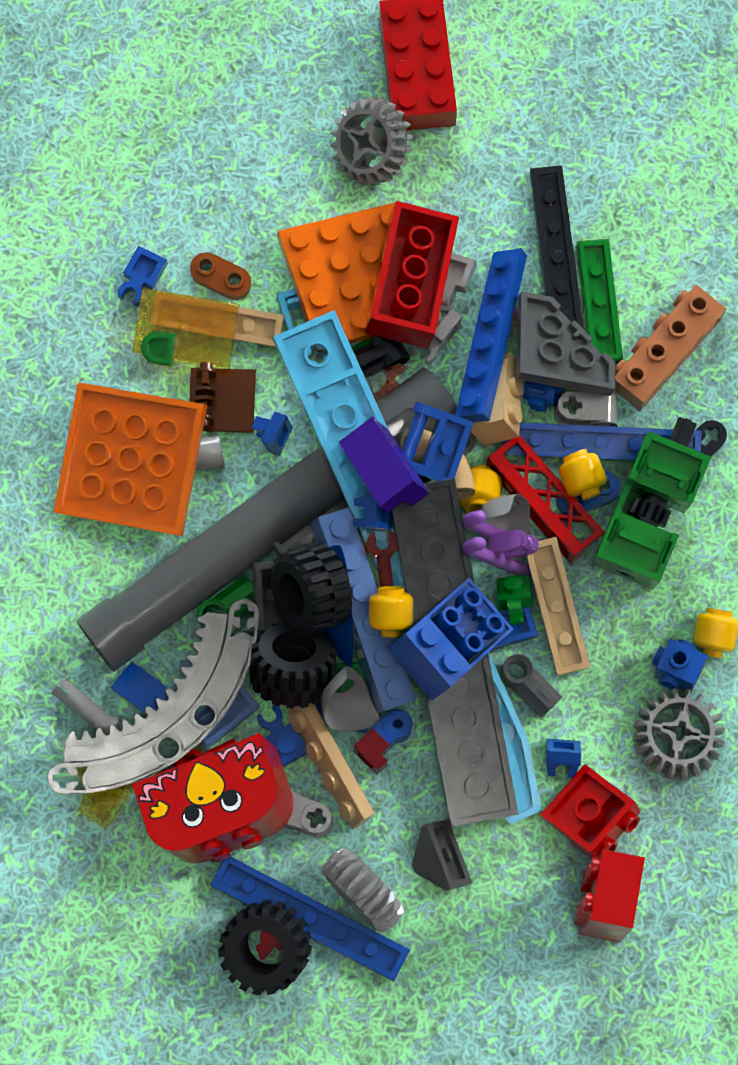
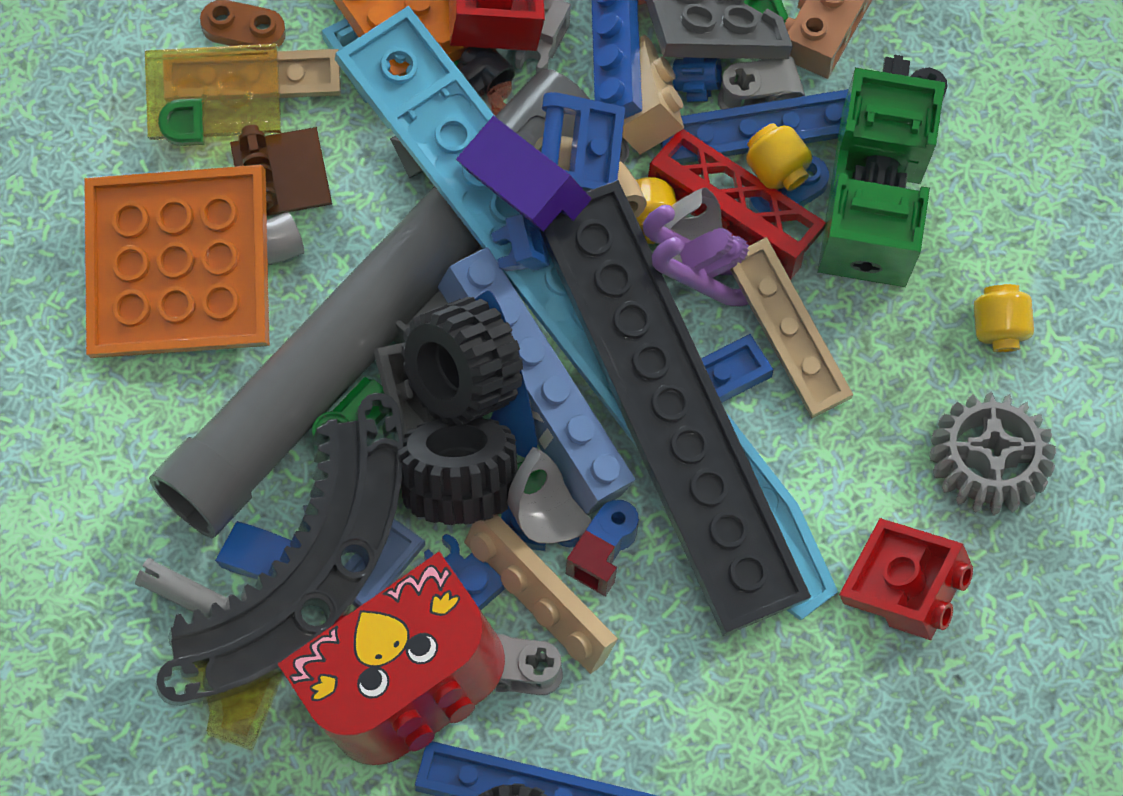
camera: 15 degrees left, 10 degrees down
(142, 271) = (138, 33): blue plate -> none
(273, 431) = (358, 194): blue tile -> none
(362, 889) = (627, 740): light grey gear -> none
(383, 556) = (547, 302): clear red bar -> none
(391, 610) = (576, 362): yellow head -> none
(439, 857) = (717, 681): dark grey slope -> none
(450, 639) = (663, 382): blue slope -> none
(514, 594) = (729, 326): green plate -> none
(532, 688) = (782, 436): dark grey piece -> none
(563, 752) = (847, 510): blue tile -> none
(611, 895) = (968, 662): red brick -> none
(679, 665) = (968, 365): blue brick -> none

